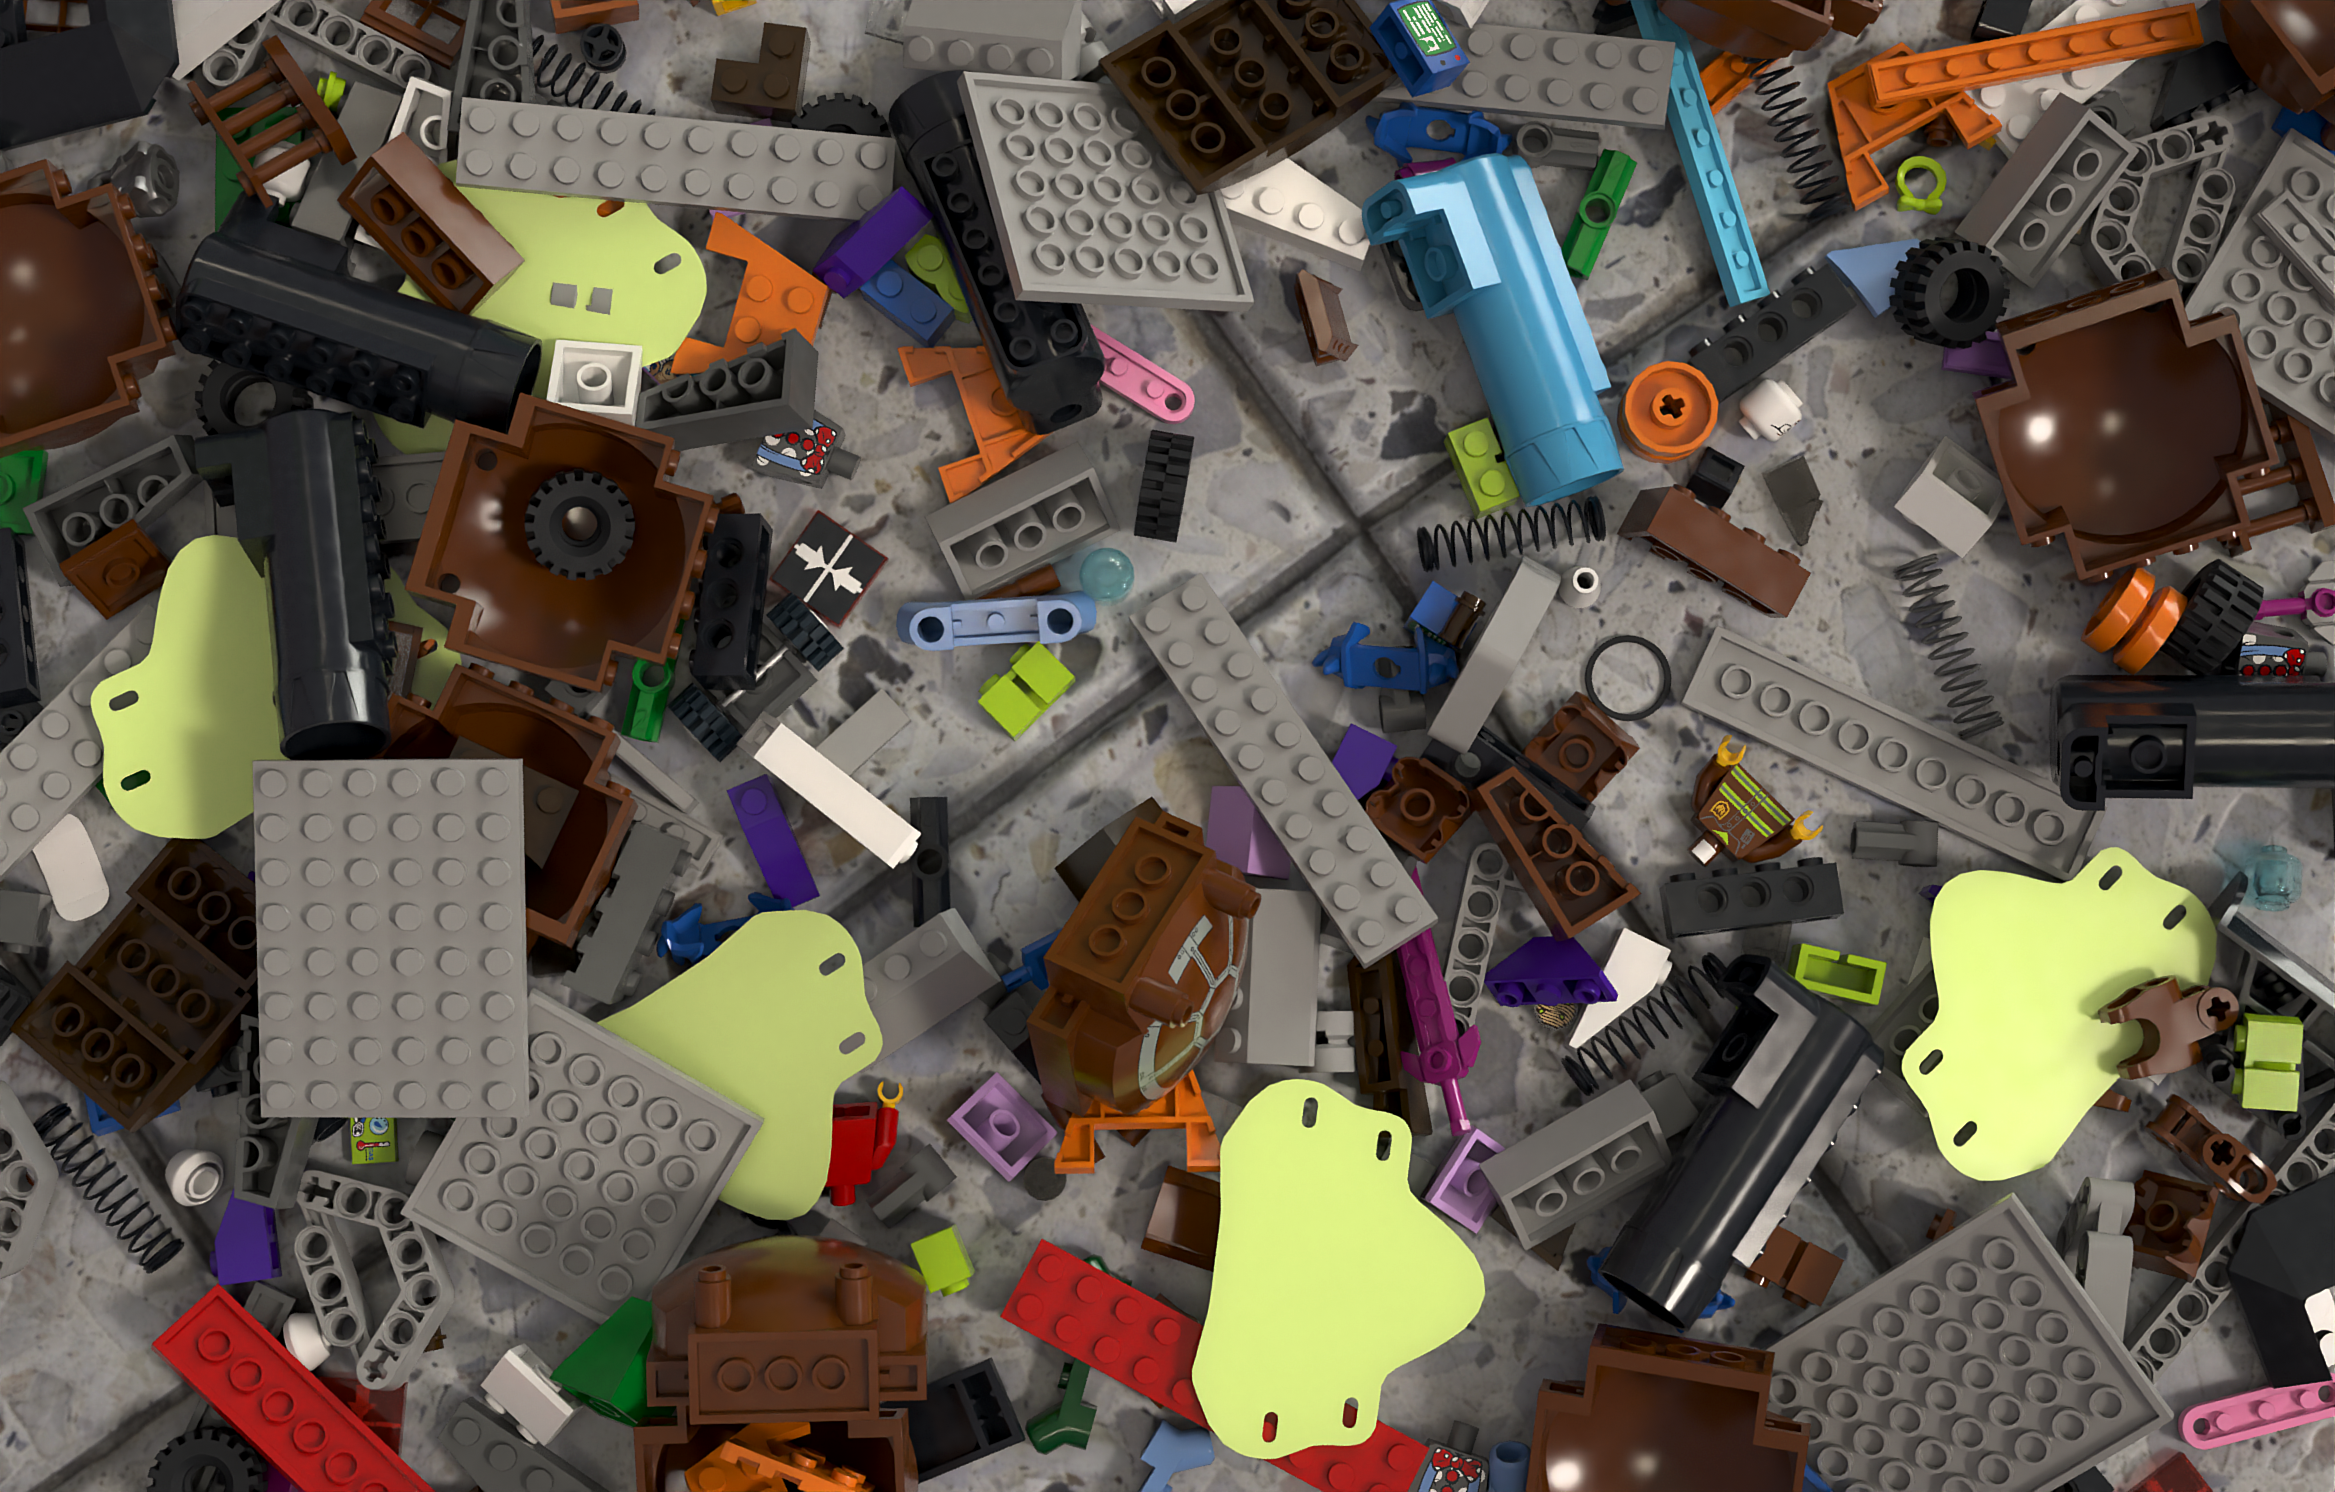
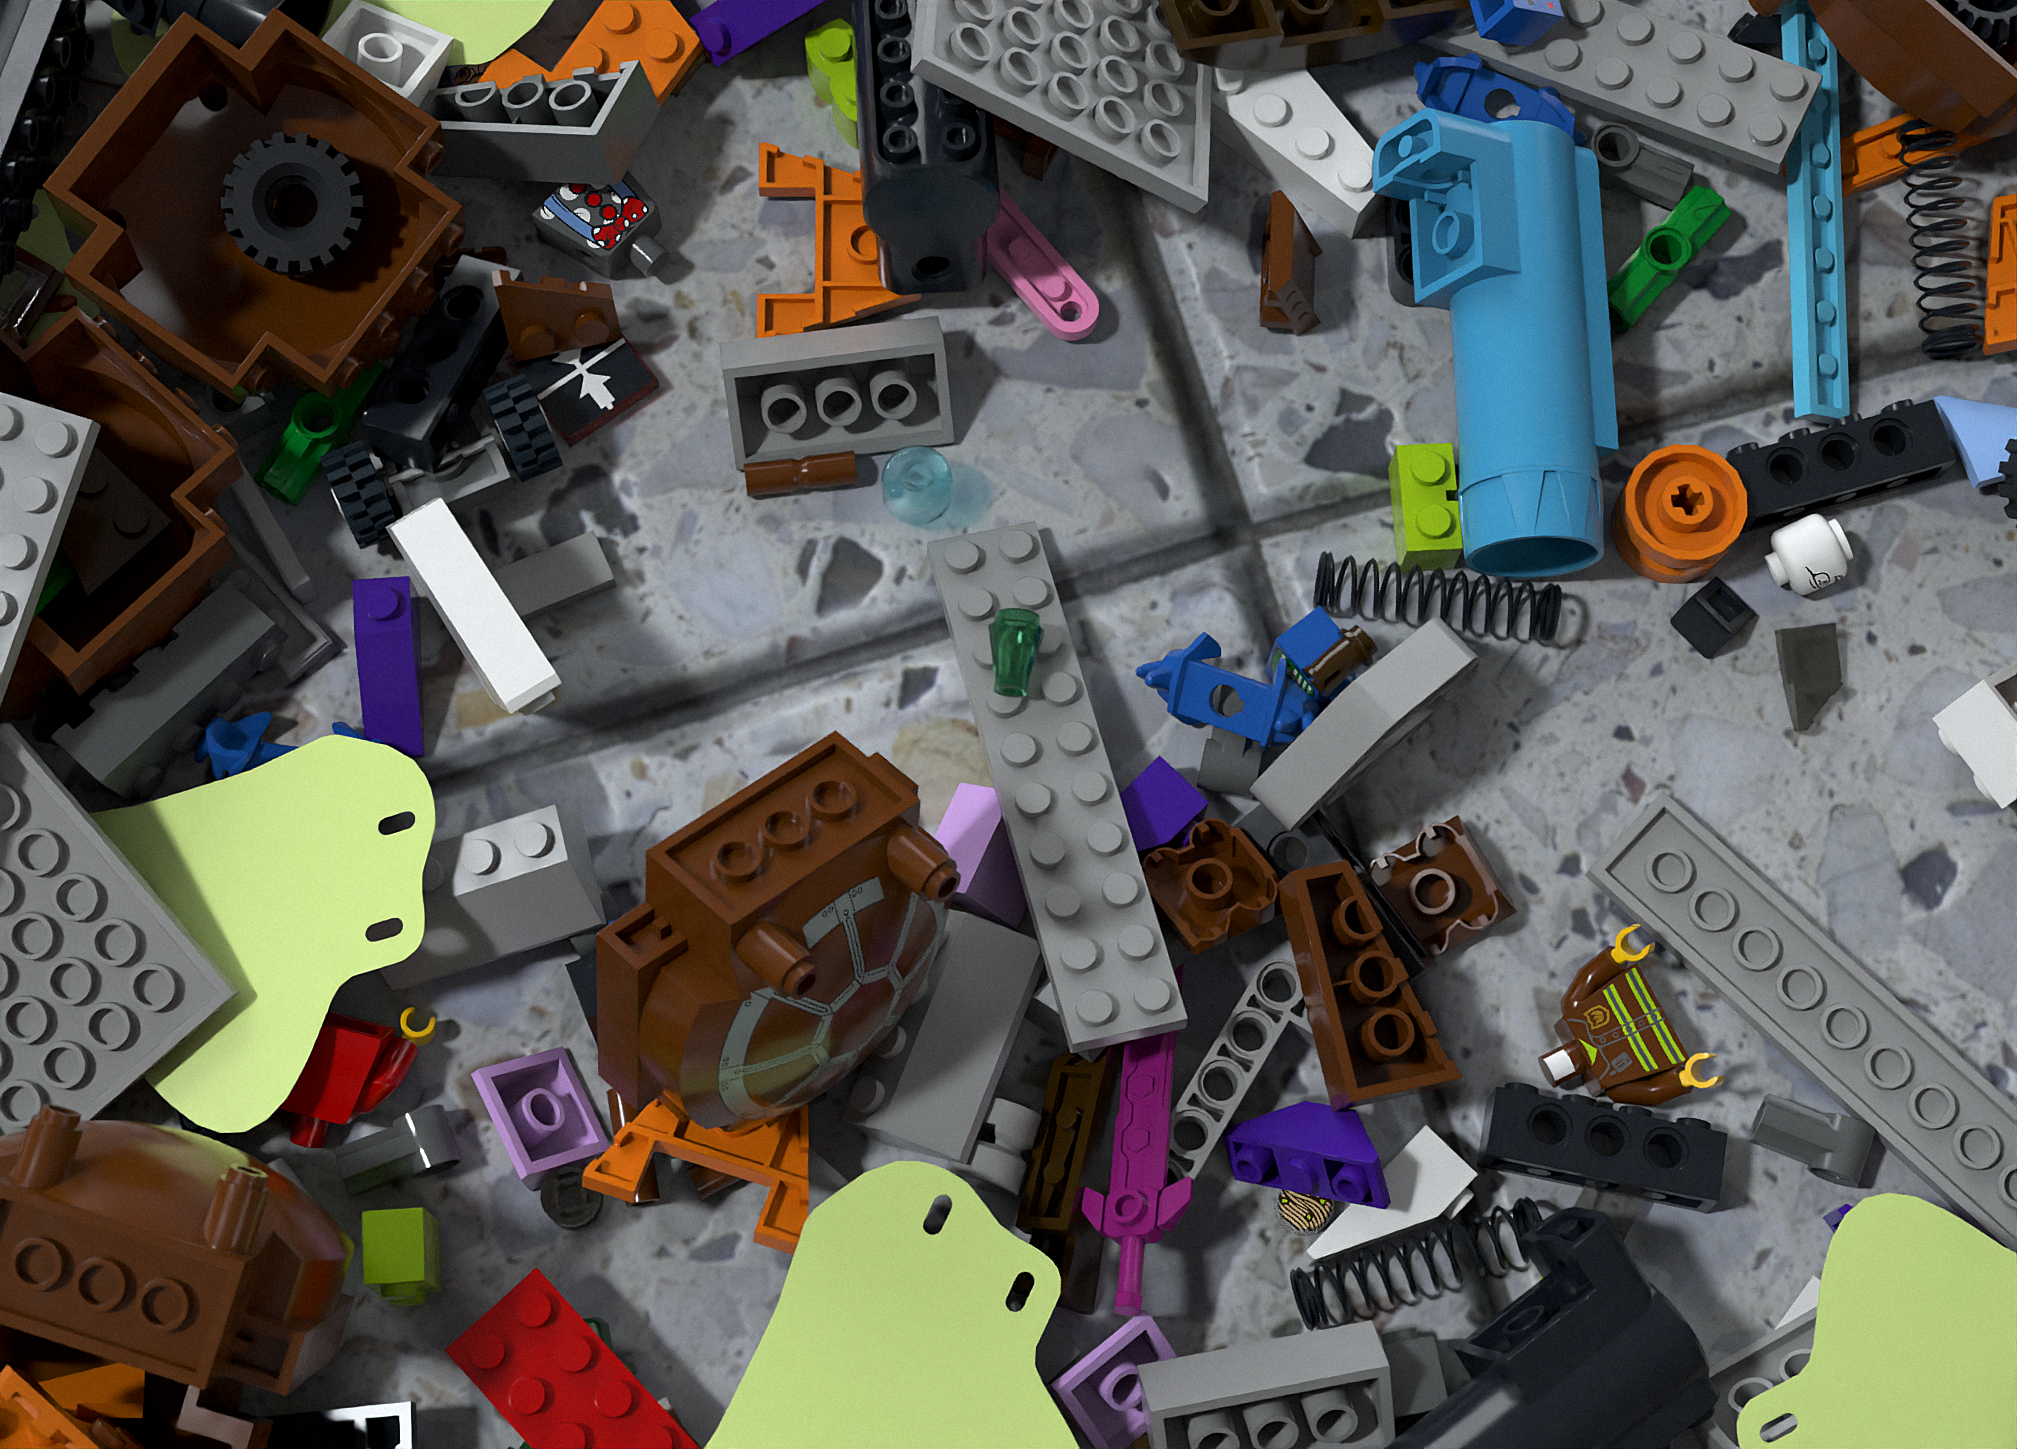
camera: 20 degrees right, 10 degrees down
(799, 540) = (554, 315): none -> reddish brown wing
(908, 304) = (791, 95): blue brick -> none
(931, 891) = (583, 722): black piece -> none
(996, 620) = (763, 491): medium blue plate -> none
(1026, 690) = (768, 590): lime piece -> none
(1163, 486) = (1023, 395): black tyre -> none
(1185, 1219) = (728, 1309): reddish brown slope -> none
(1224, 685) = (1014, 649): none -> clear green cone
(1575, 595) = (1497, 696): white cone -> none
(1667, 678) = (1553, 780): black piece -> none
(1716, 549) = (1690, 697): reddish brown wedge -> none
(1849, 980) = (1706, 1294): lime piece -> none
(1915, 565) = (1958, 1026): dark grey piece -> none

